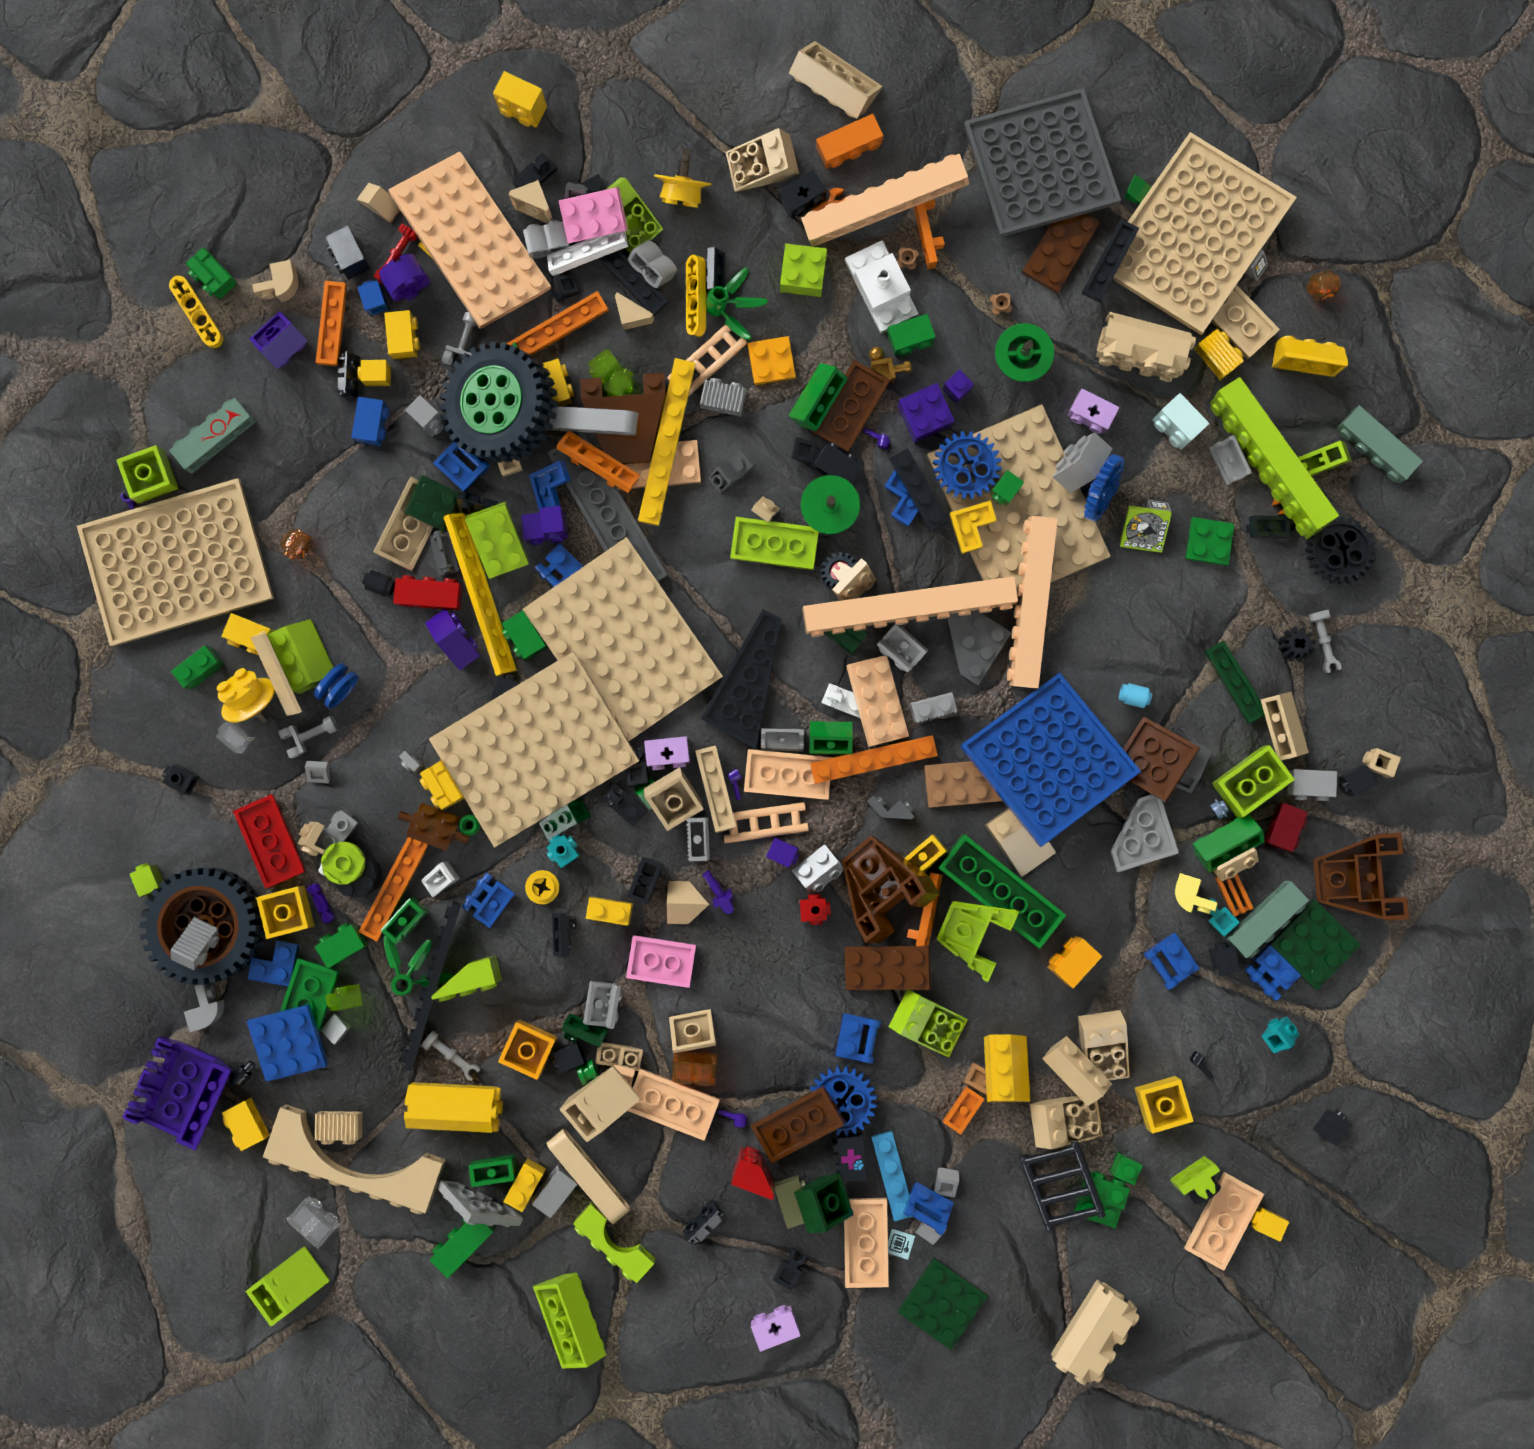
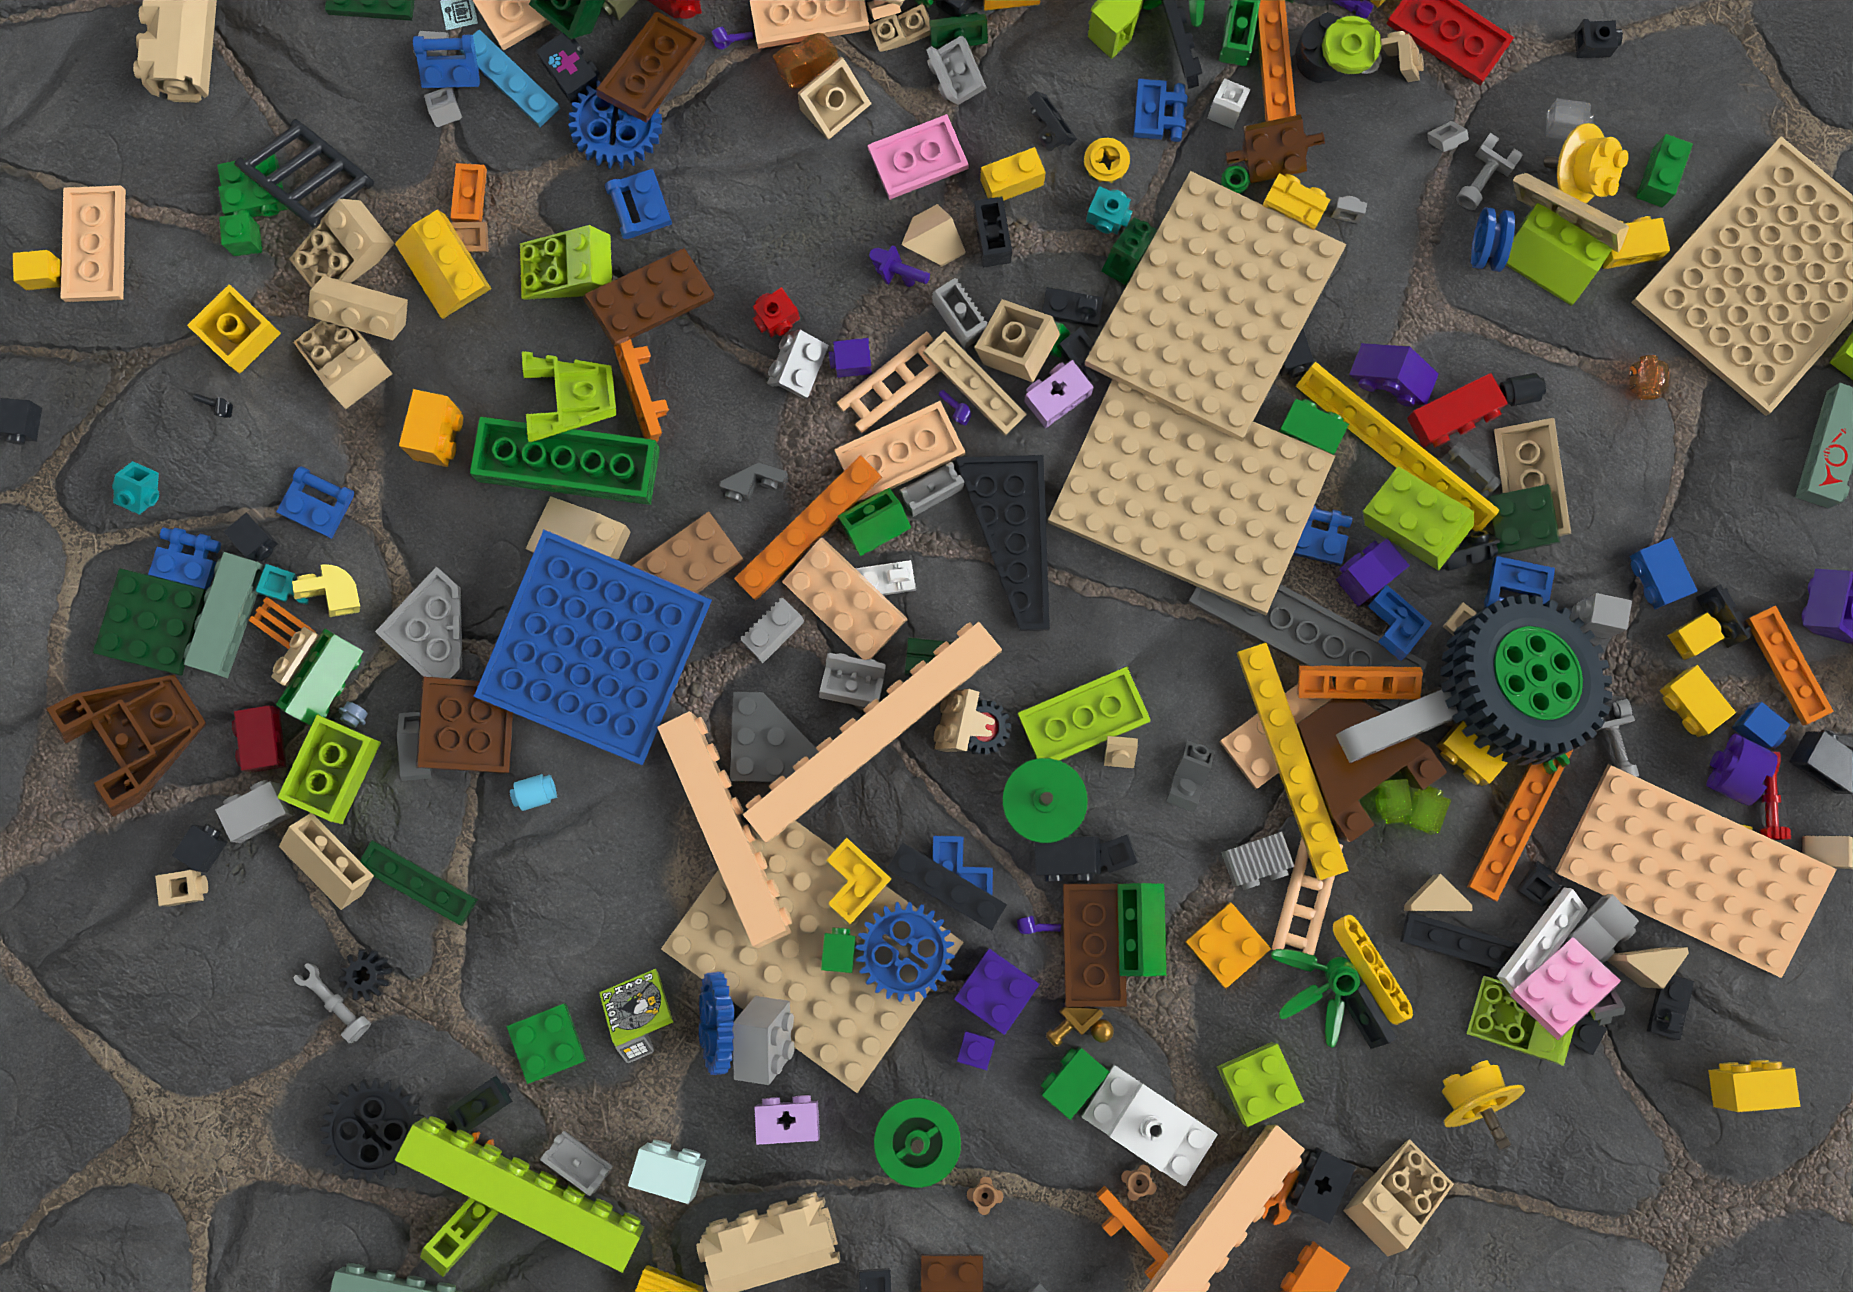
camera: 145 degrees right, 5 degrees down
(338, 830) = (1381, 83): light grey bracket -> none
(653, 265) = (1451, 976): light grey brick -> none
(880, 880) = (716, 386): reddish brown wedge -> none
(927, 853) = (680, 447): yellow brick -> none
(1198, 1180) = (146, 267): lime piece -> none

